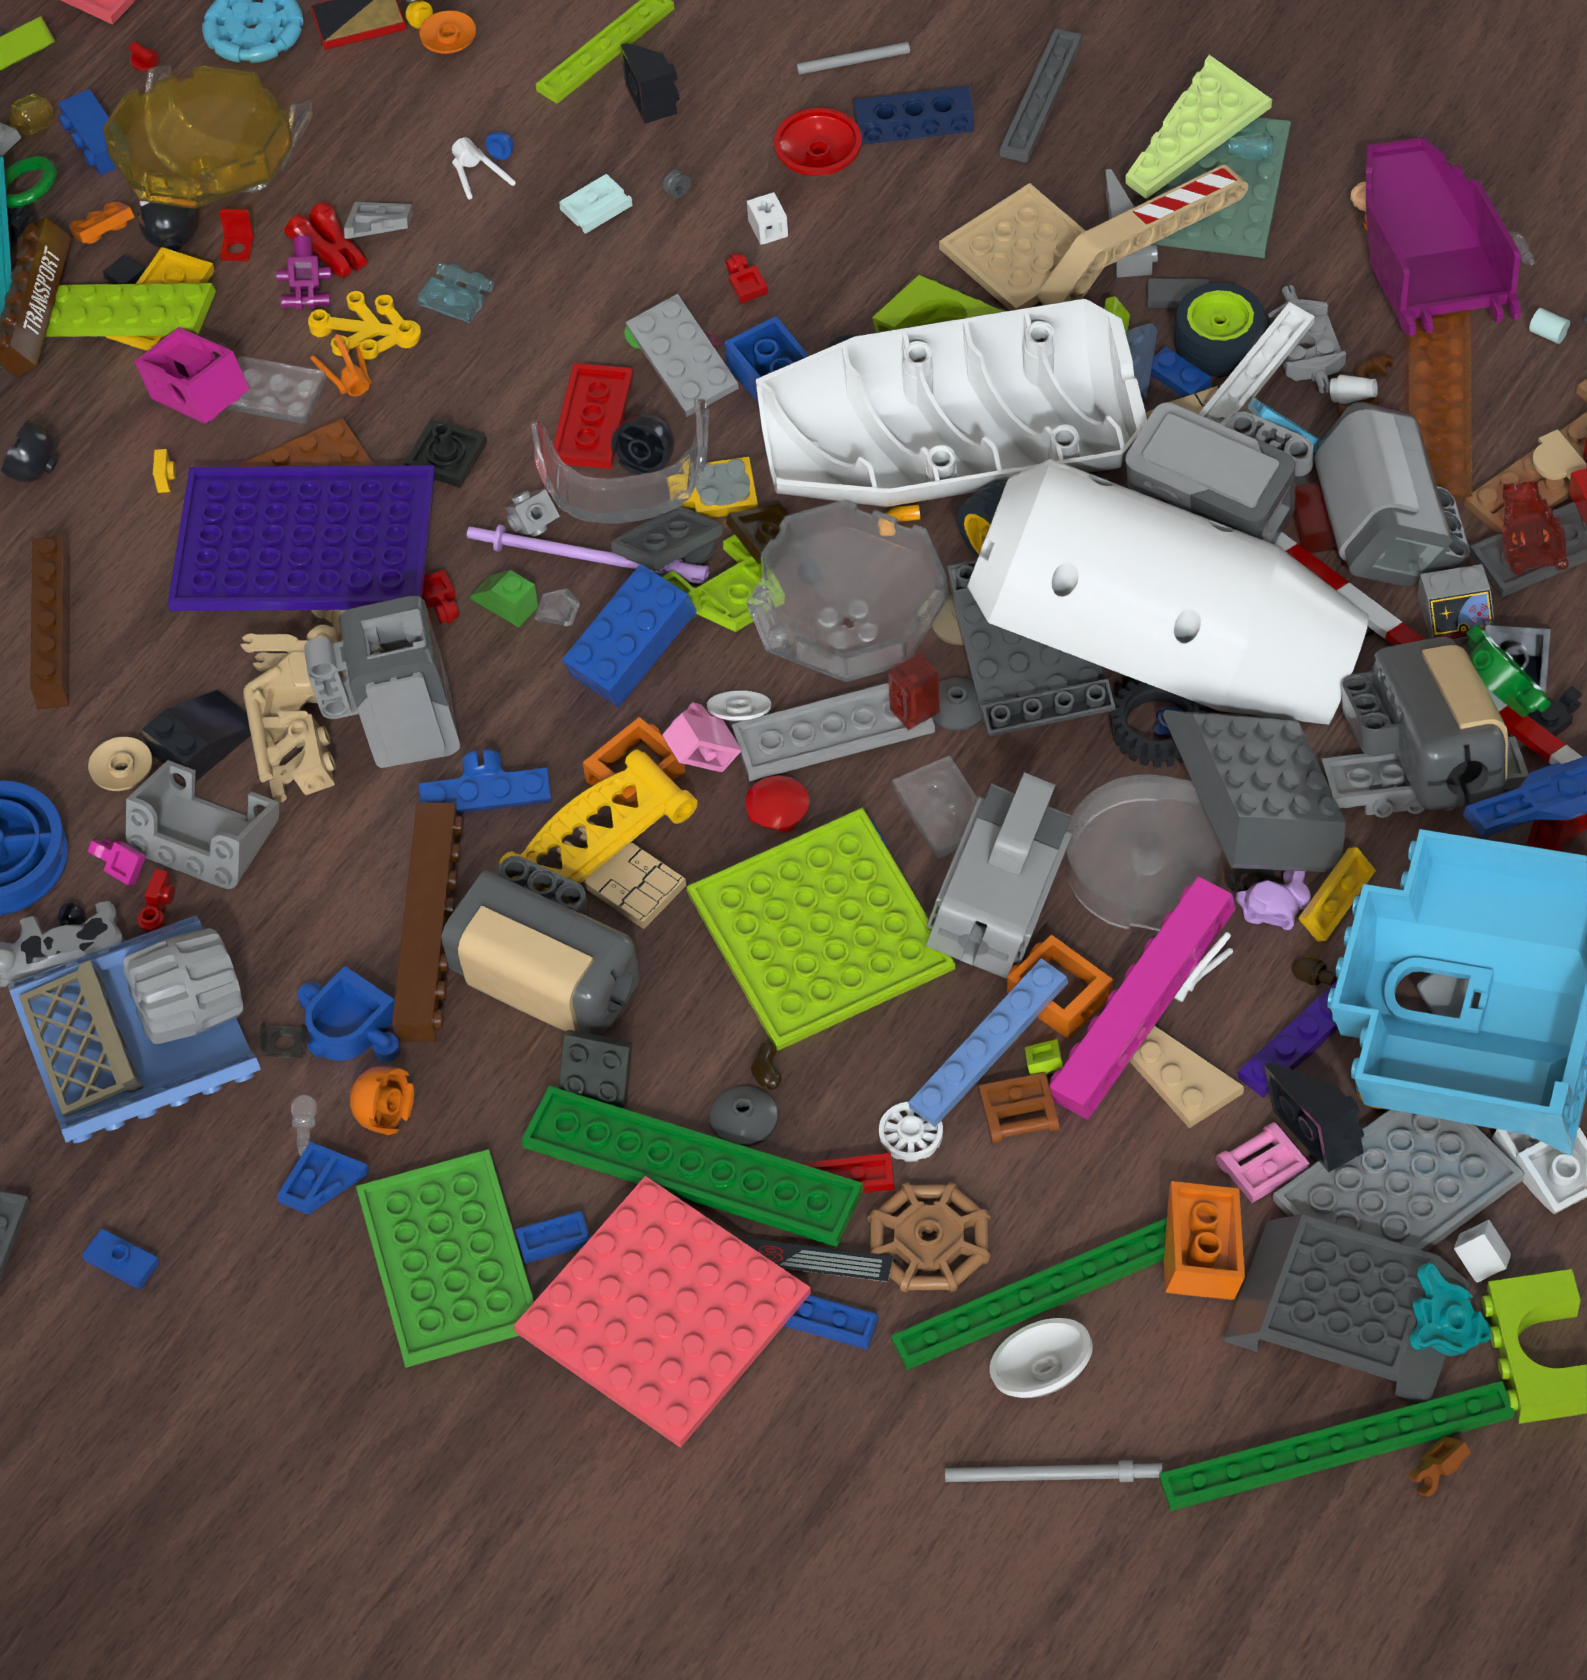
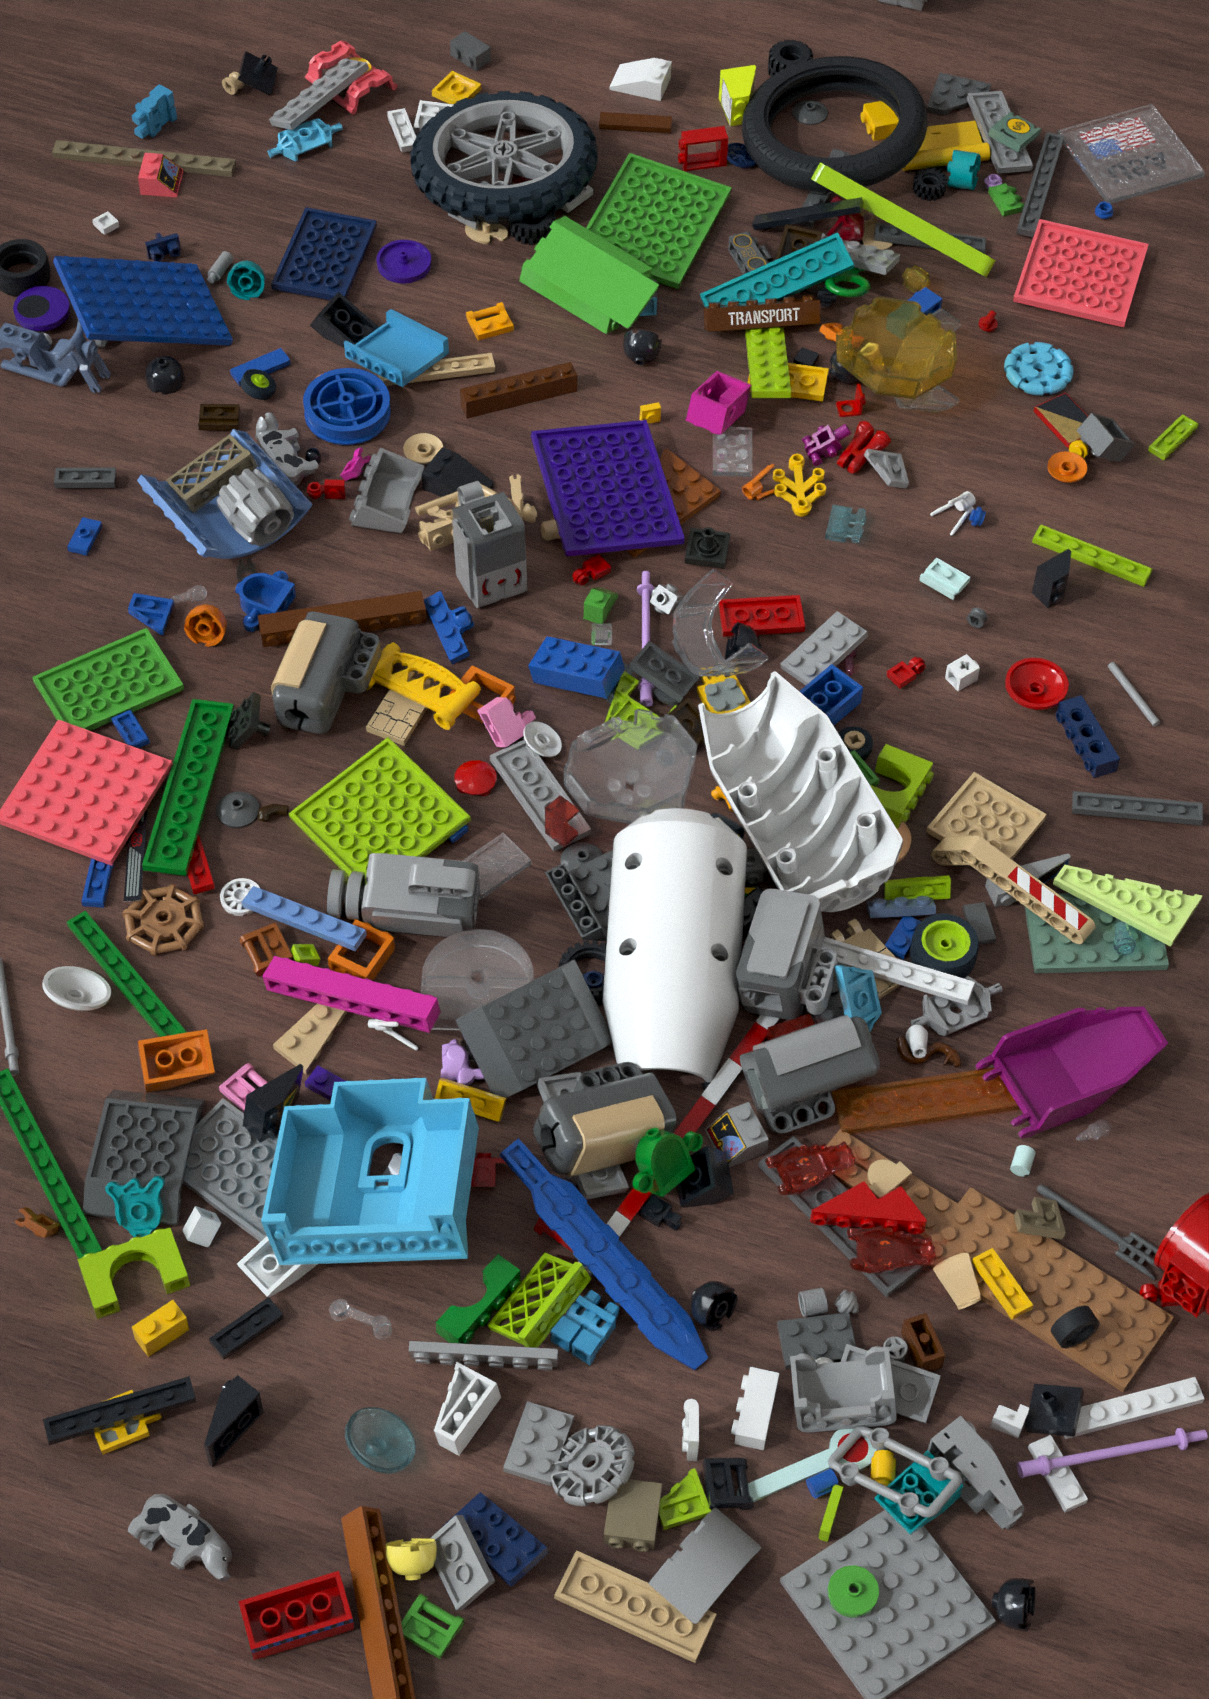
camera: 70 degrees right, 0 degrees up
(963, 980) = (345, 894): none -> light grey wheel

